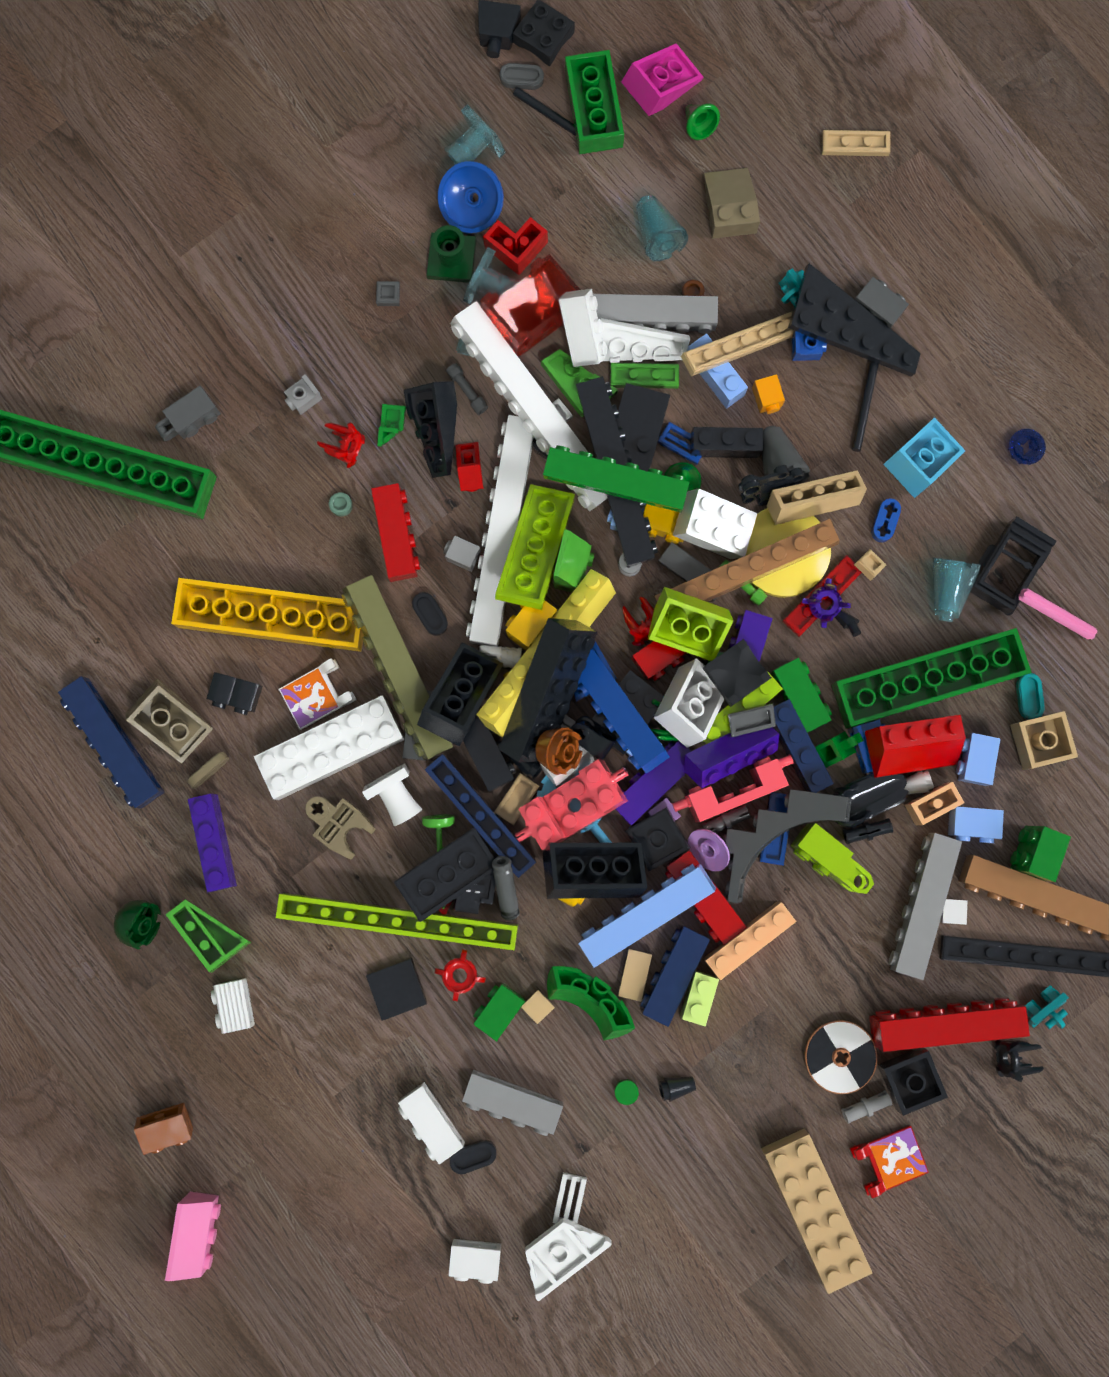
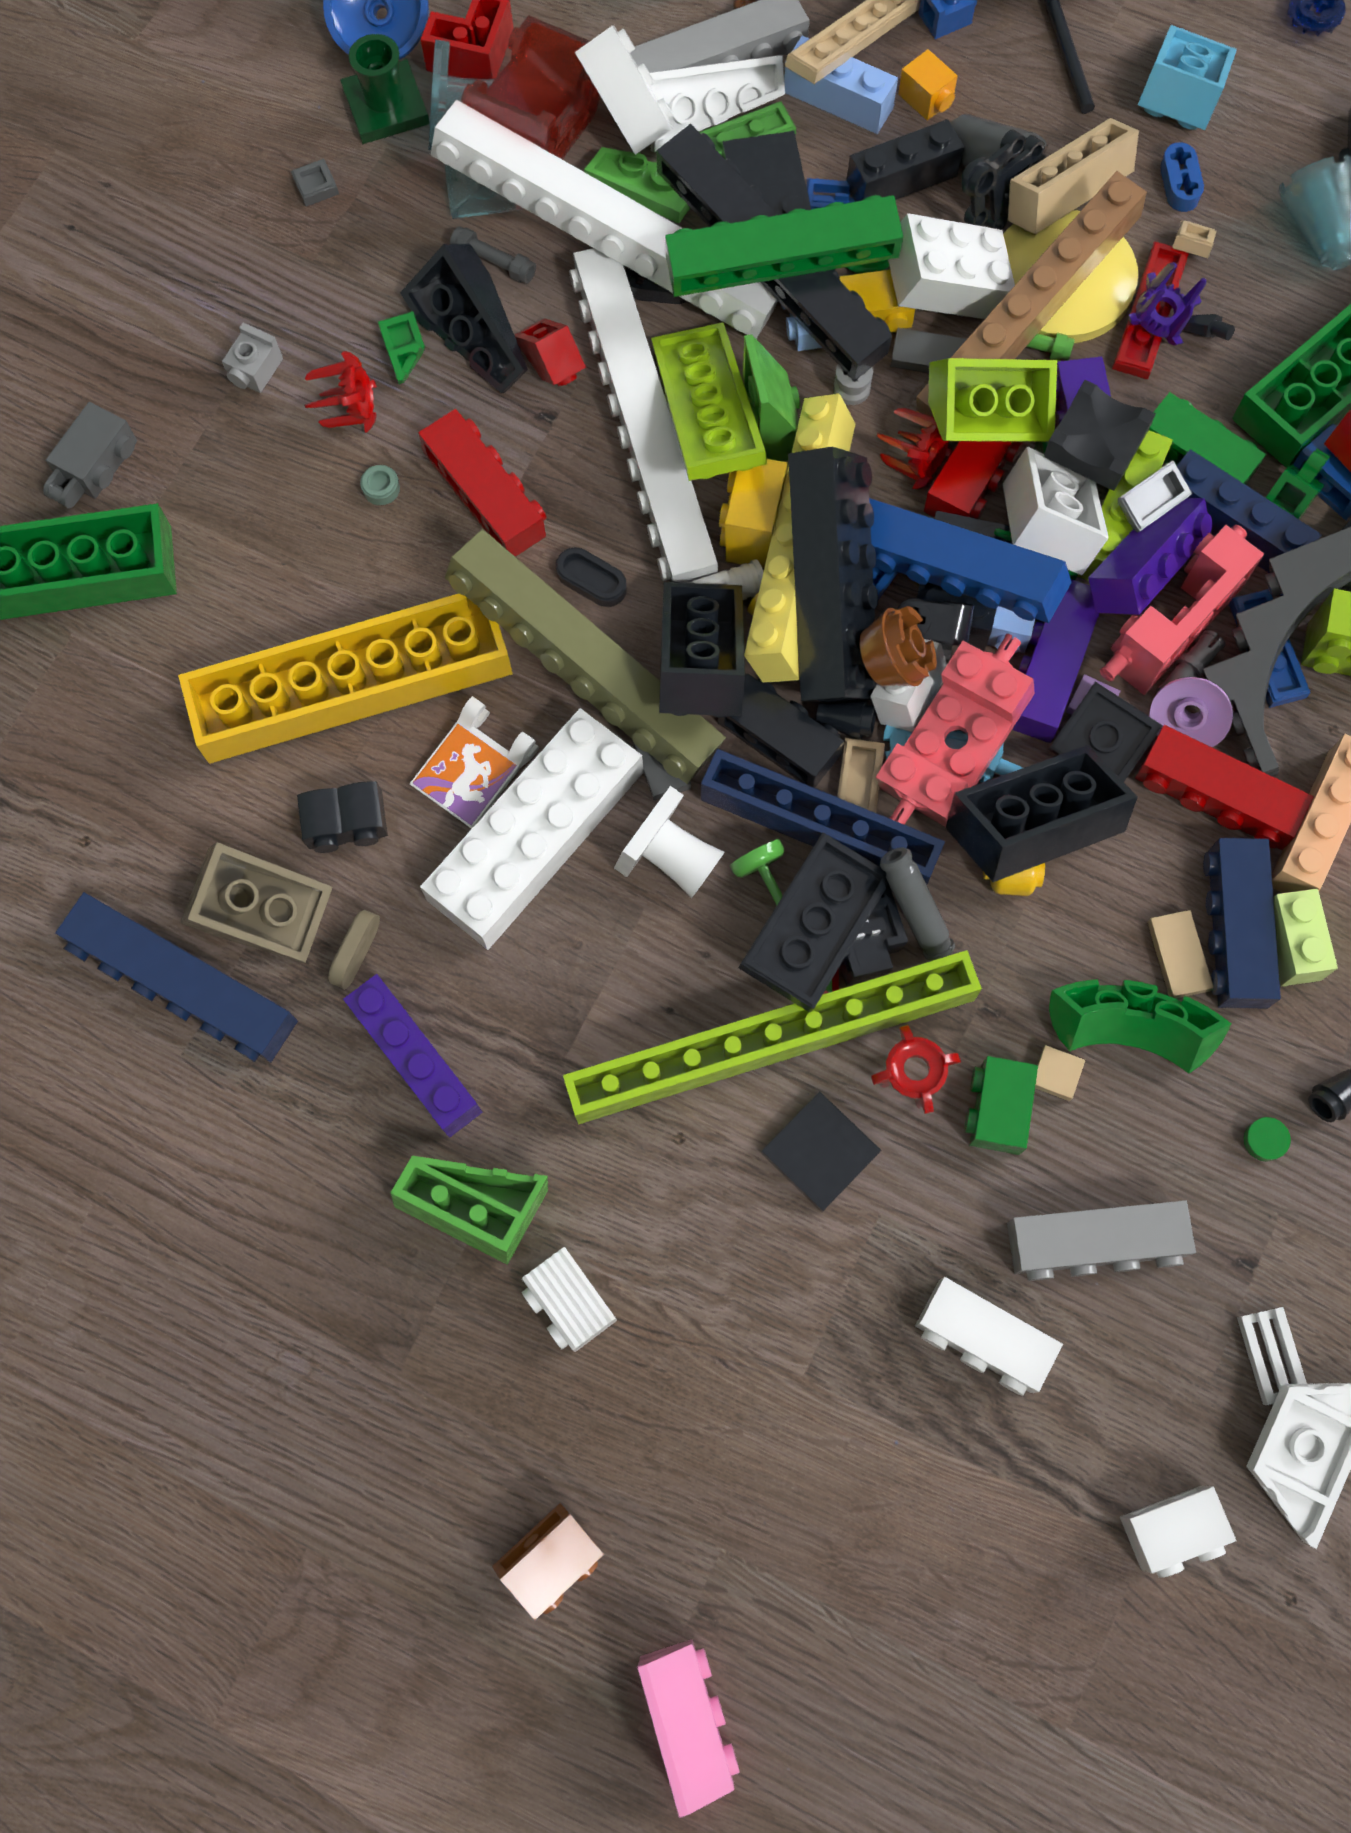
camera: 25 degrees left, 10 degrees down
(136, 923) = (345, 1239): dark green cylinder -> none
(330, 817) = (583, 930): dark tan piece -> none
(462, 553) = (598, 469): light grey brick -> none
(473, 1157) = (1082, 1361): black tile -> none
(647, 915) = (1155, 845): light blue brick -> none

